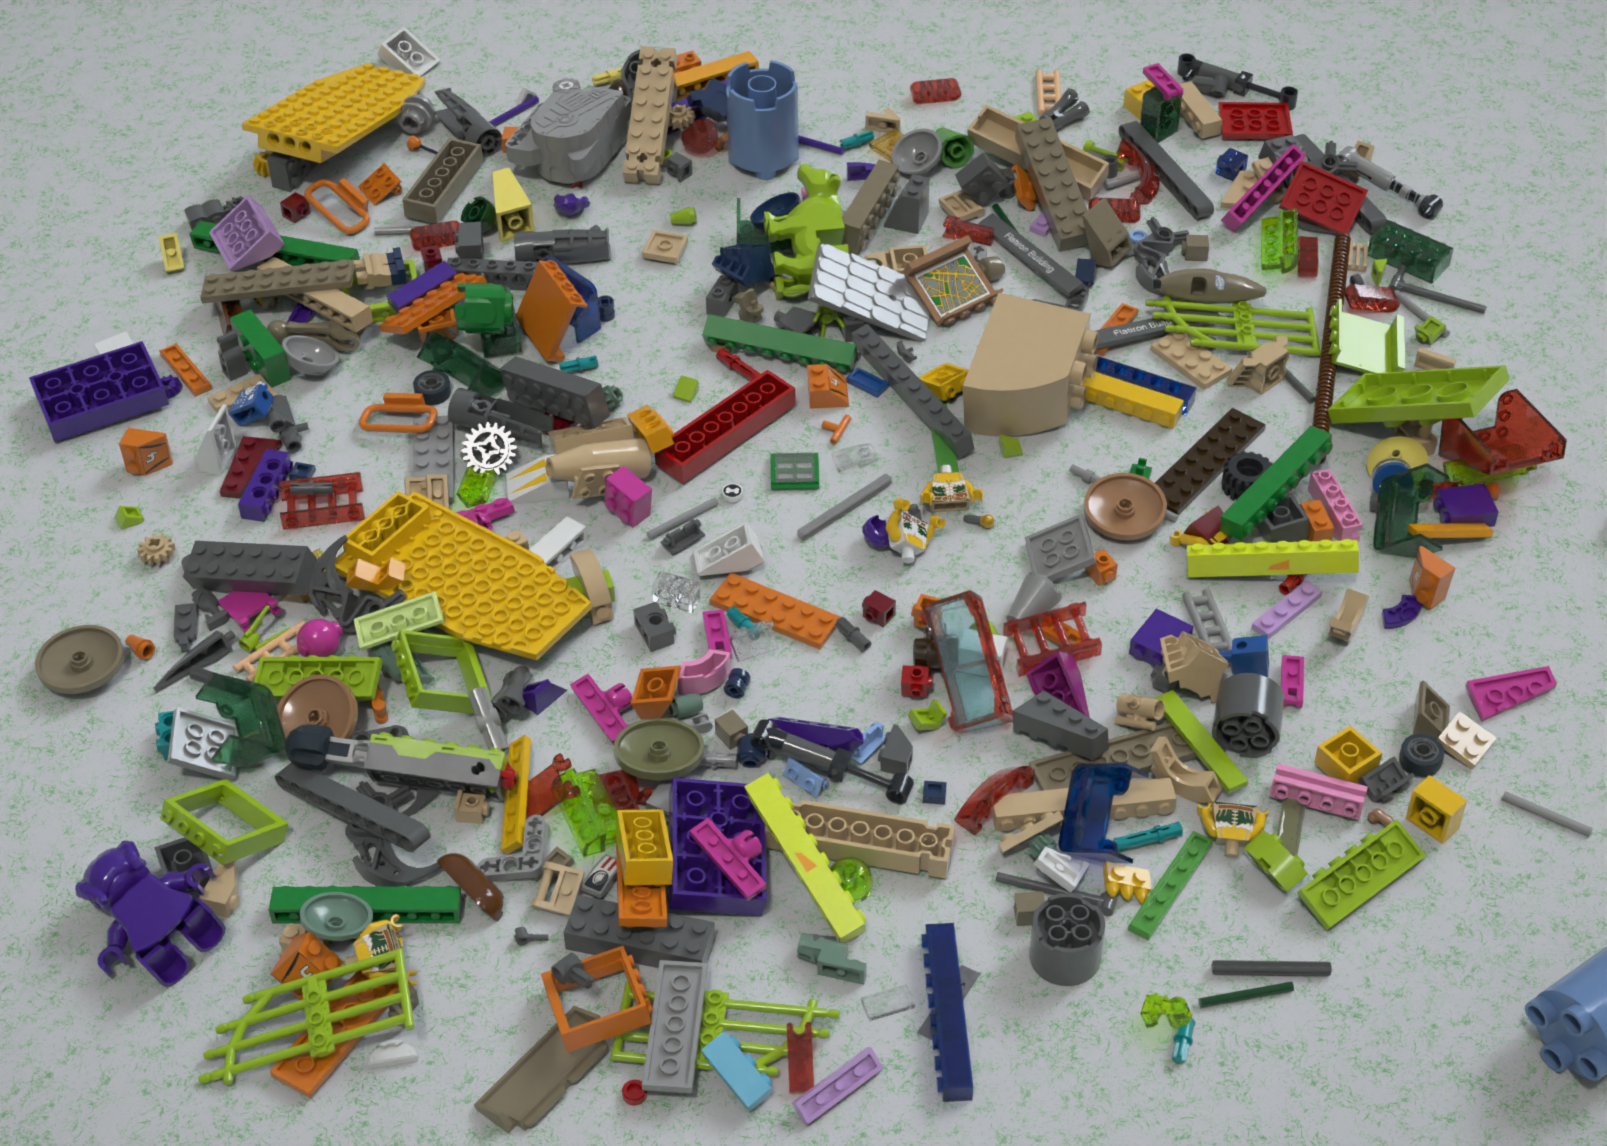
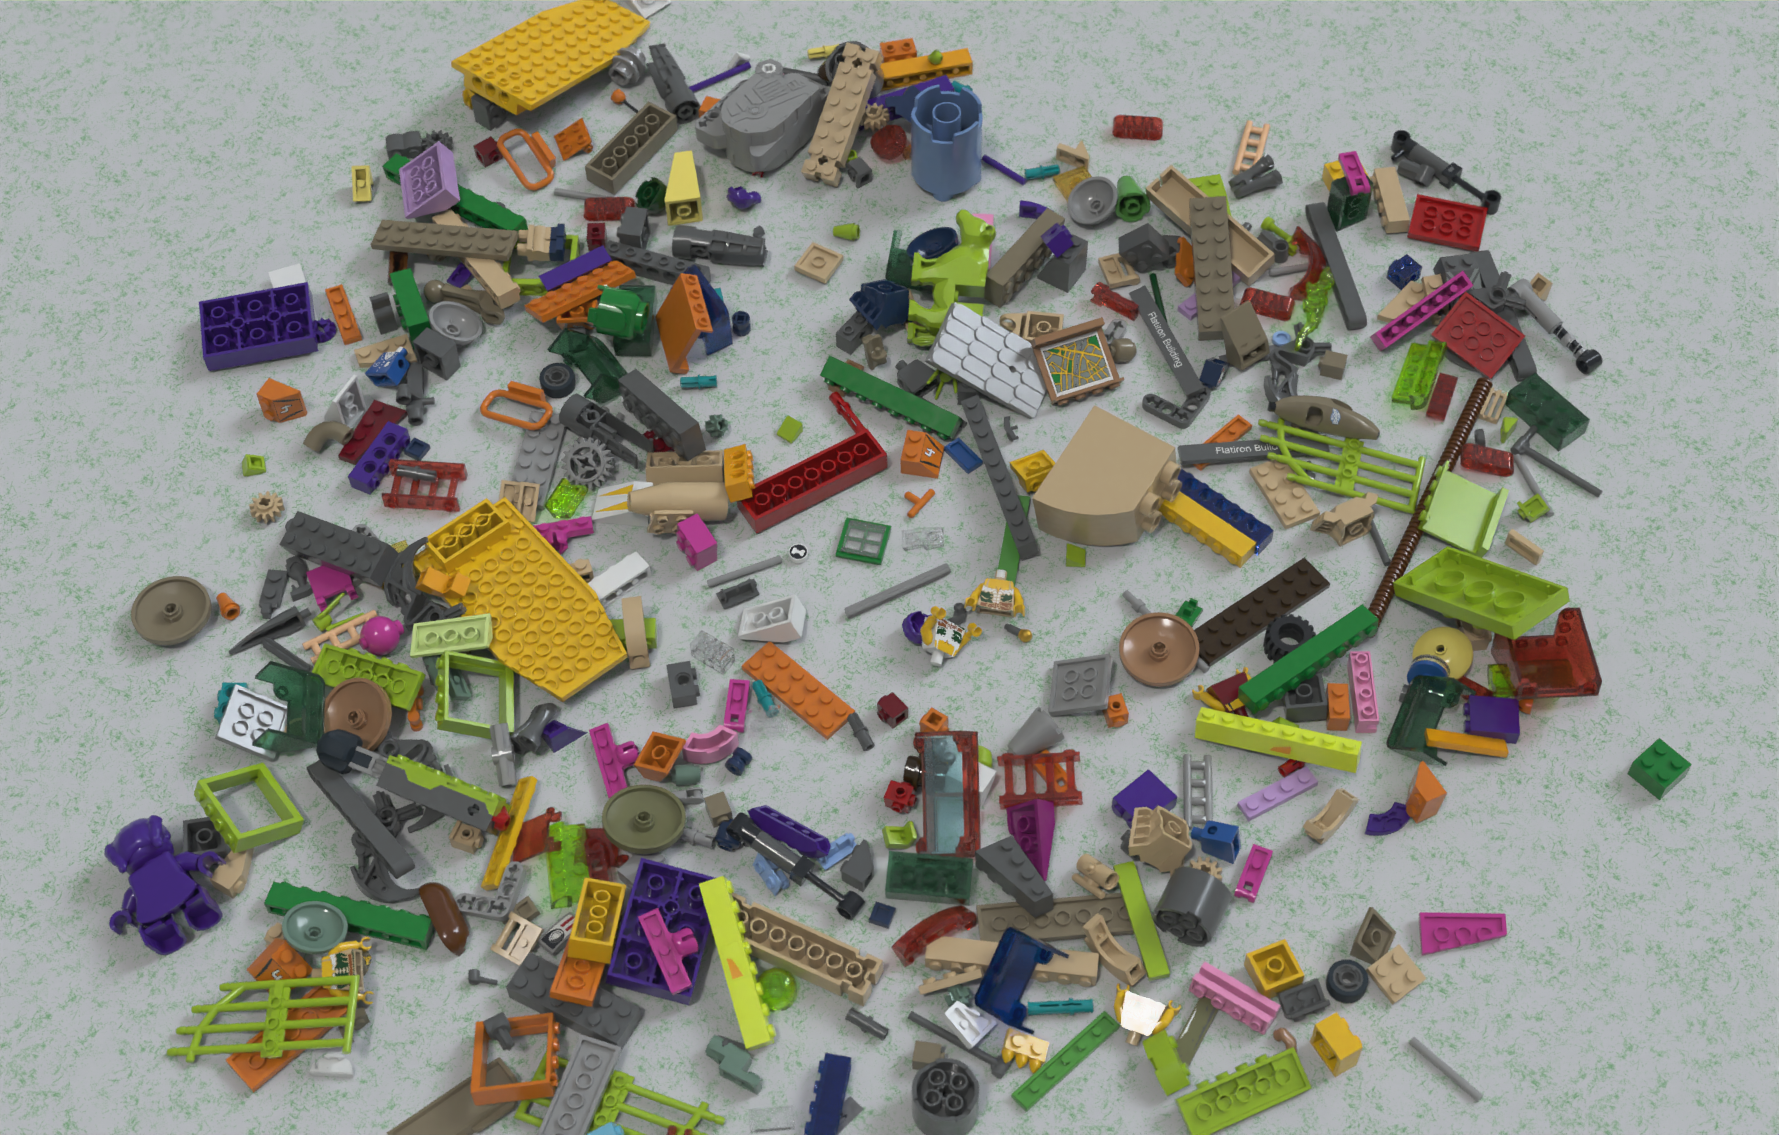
camera: 15 degrees right, 10 degrees up
(201, 470) = (328, 431): none -> dark tan cylinder
(299, 382) = (437, 353): none -> dark grey brick
(722, 60) = (935, 57): none -> lime hinge
(901, 179) = (1058, 239): none -> dark purple brick
(956, 892) = (867, 1024): none -> dark grey pin
(973, 745) = (929, 878): none -> clear green brick
(1161, 199) = (1315, 304): none -> clear neon green animal

